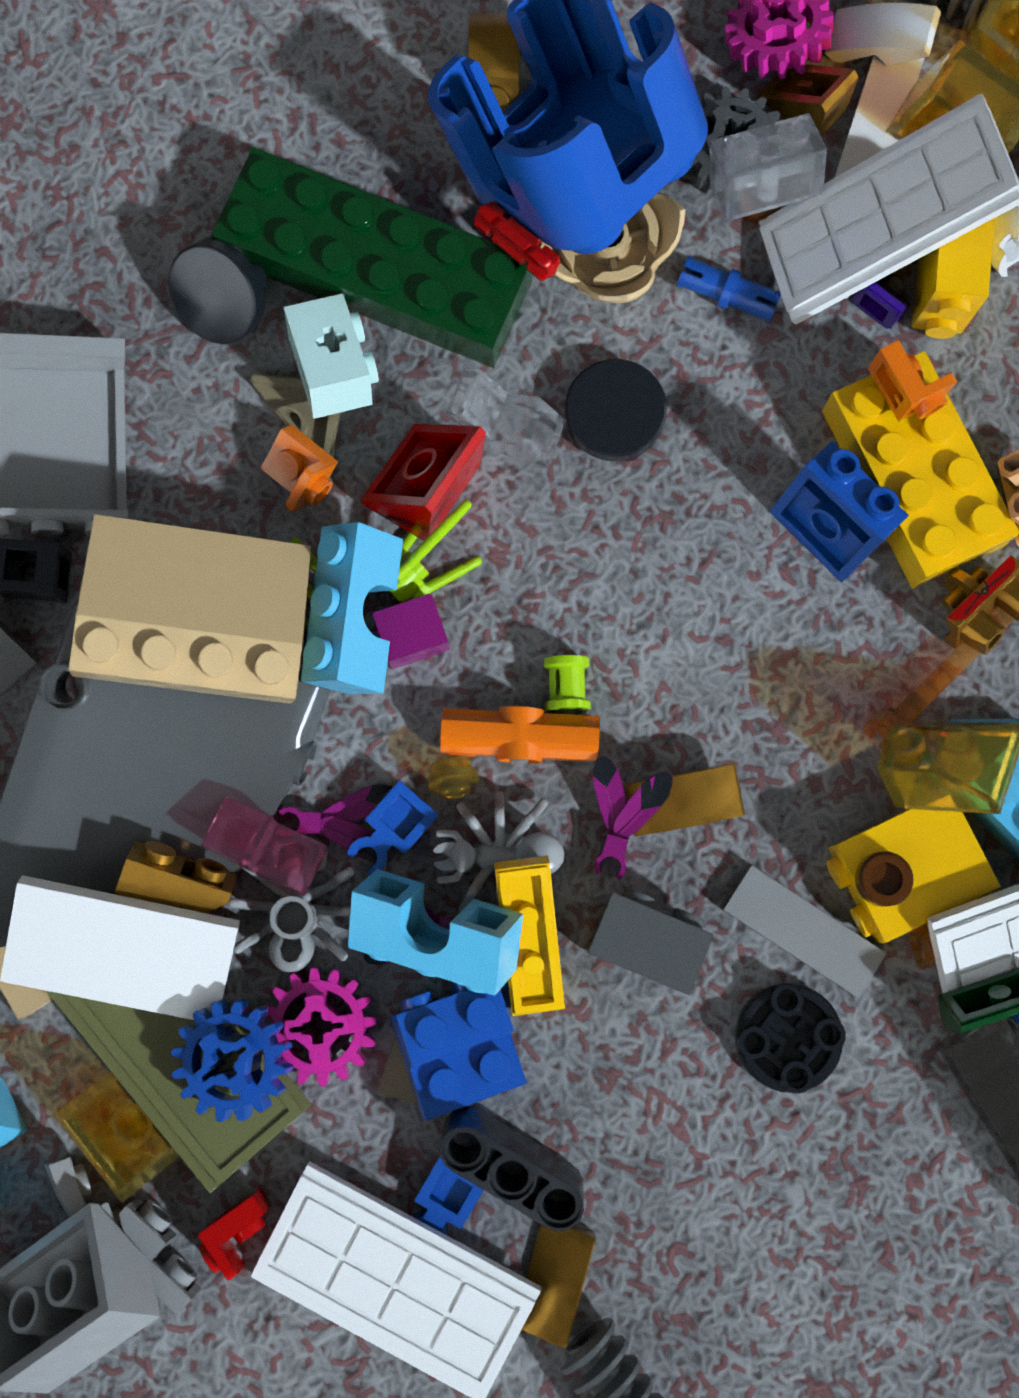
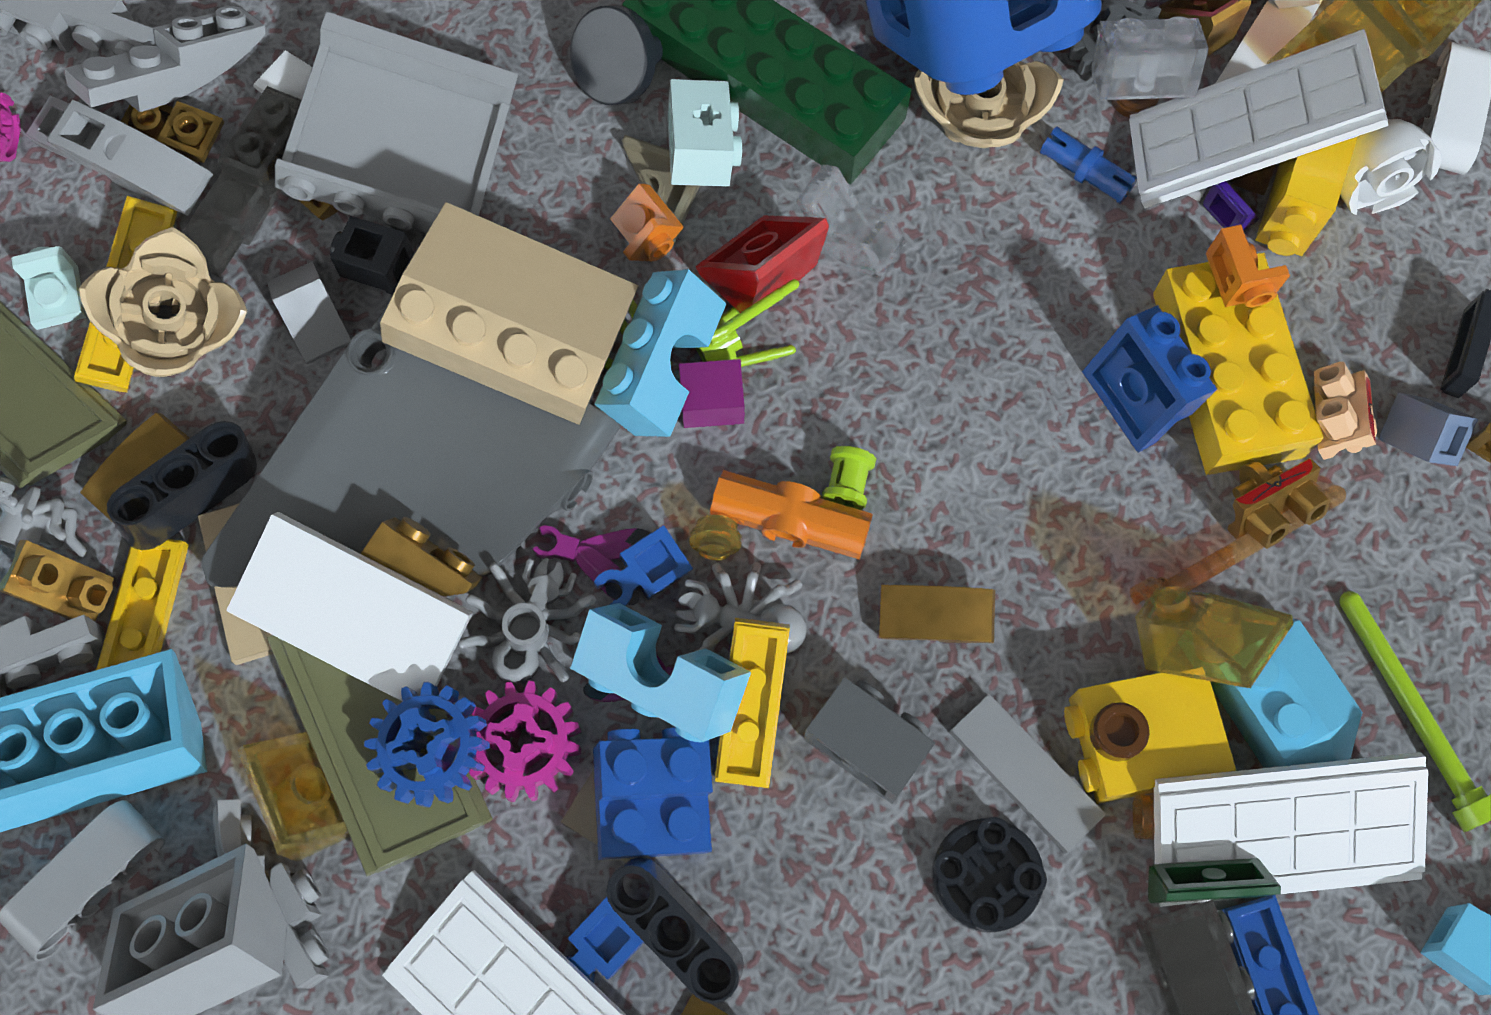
camera: 10 degrees right, 10 degrees down
(239, 1222) = (387, 913): red bracket -> none
(264, 846) = (516, 553): clear pink slope -> none
(517, 241) = (900, 68): red axle -> none
(615, 410) = (956, 245): black tile -> none
(625, 816) = (876, 614): magenta piece -> none

